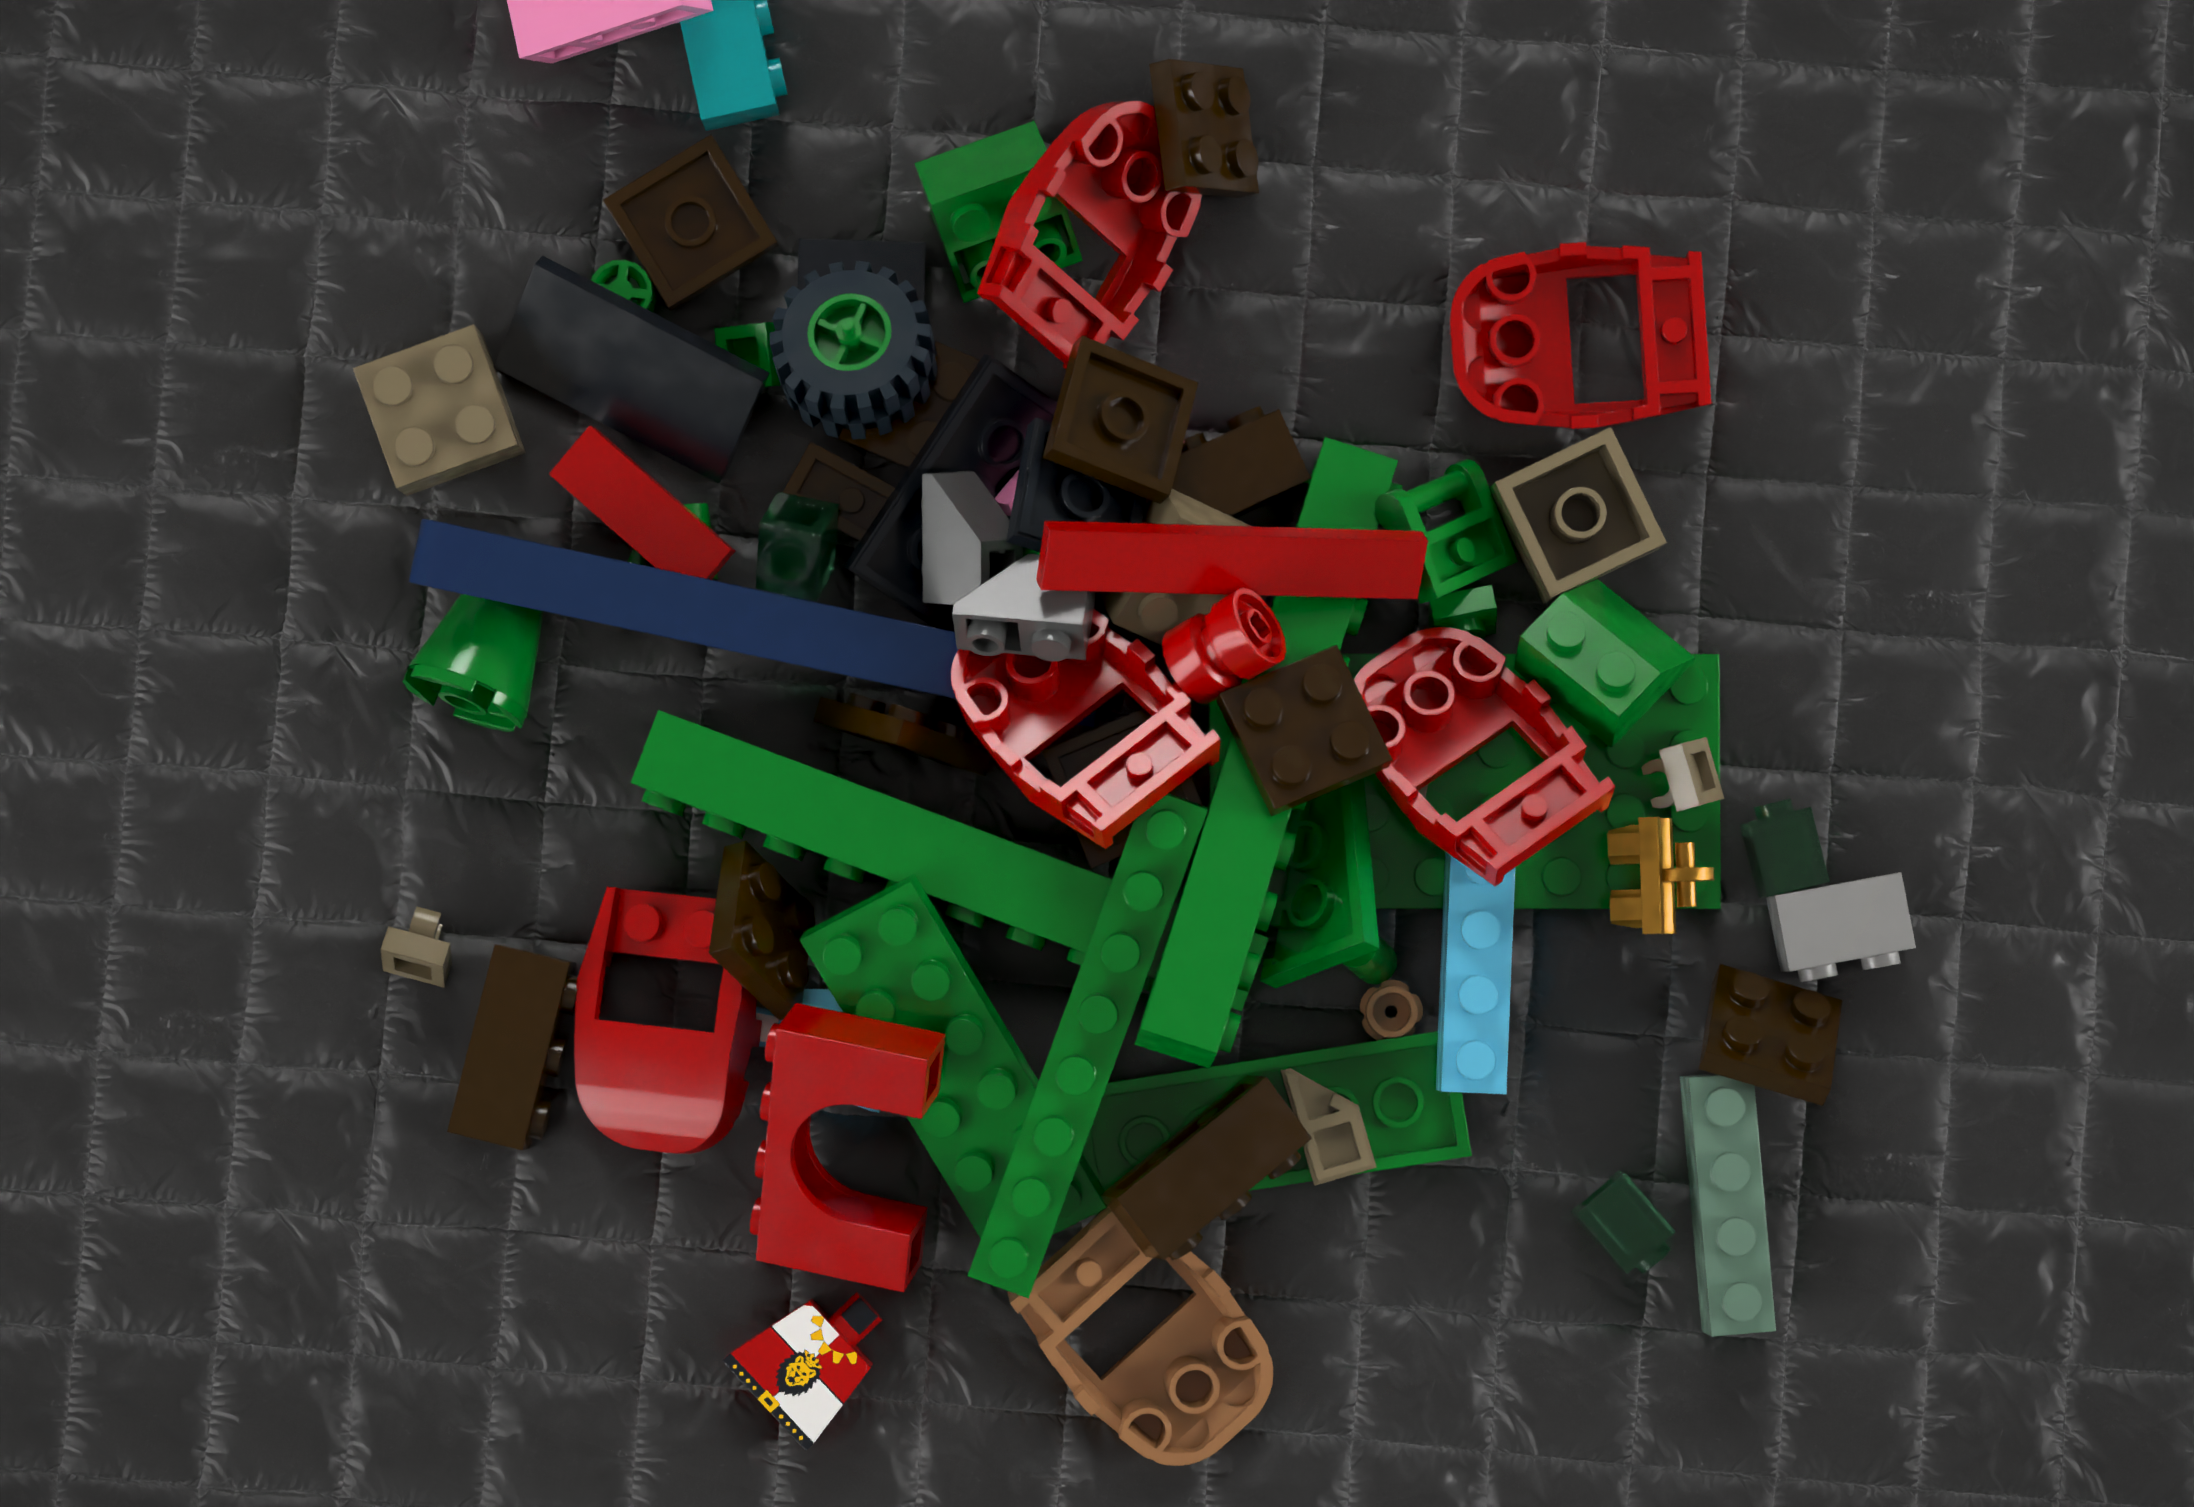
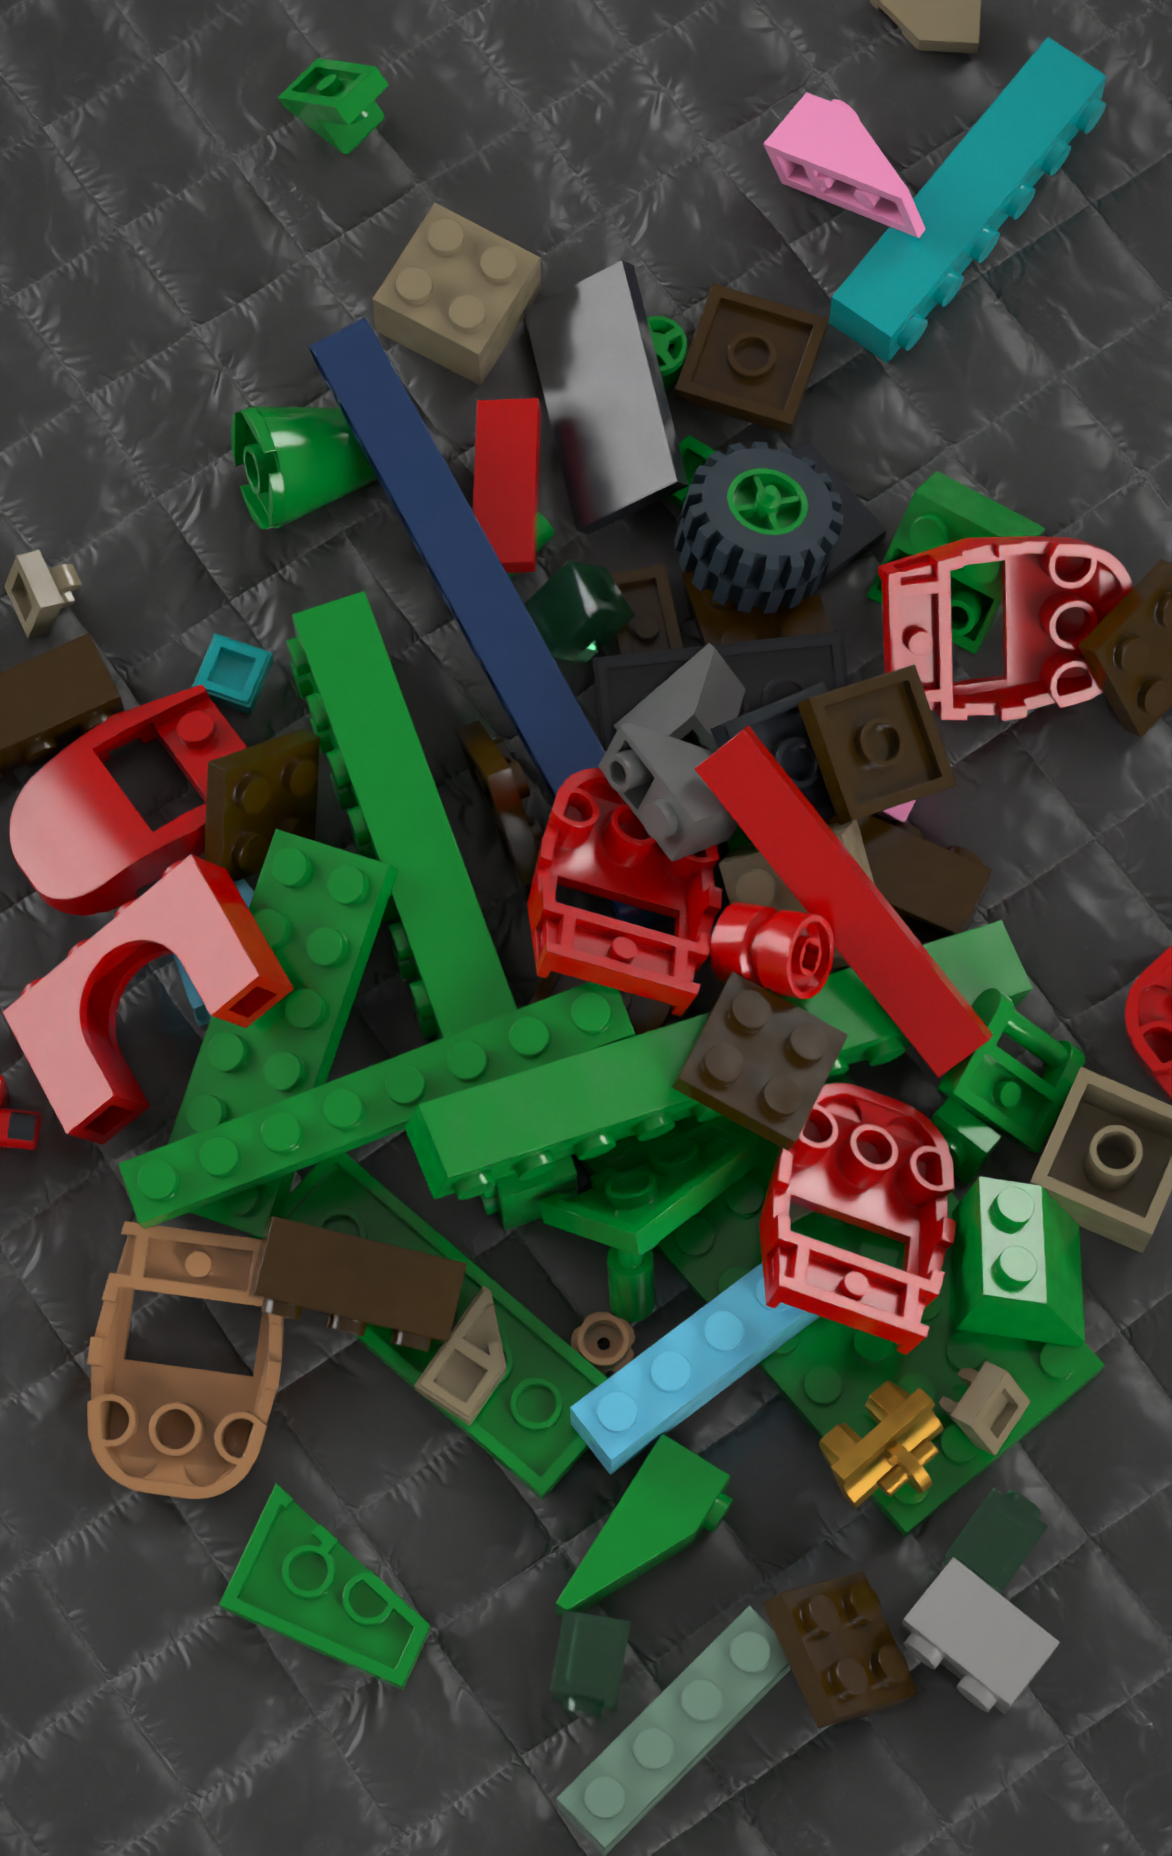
camera: 55 degrees right, 15 degrees down
(176, 363) = (337, 101): none -> green slope
(611, 851) = (234, 673): none -> teal tile
(1409, 1378) = (320, 1596): none -> green wing
(1558, 1087) = (653, 1521): none -> green slope

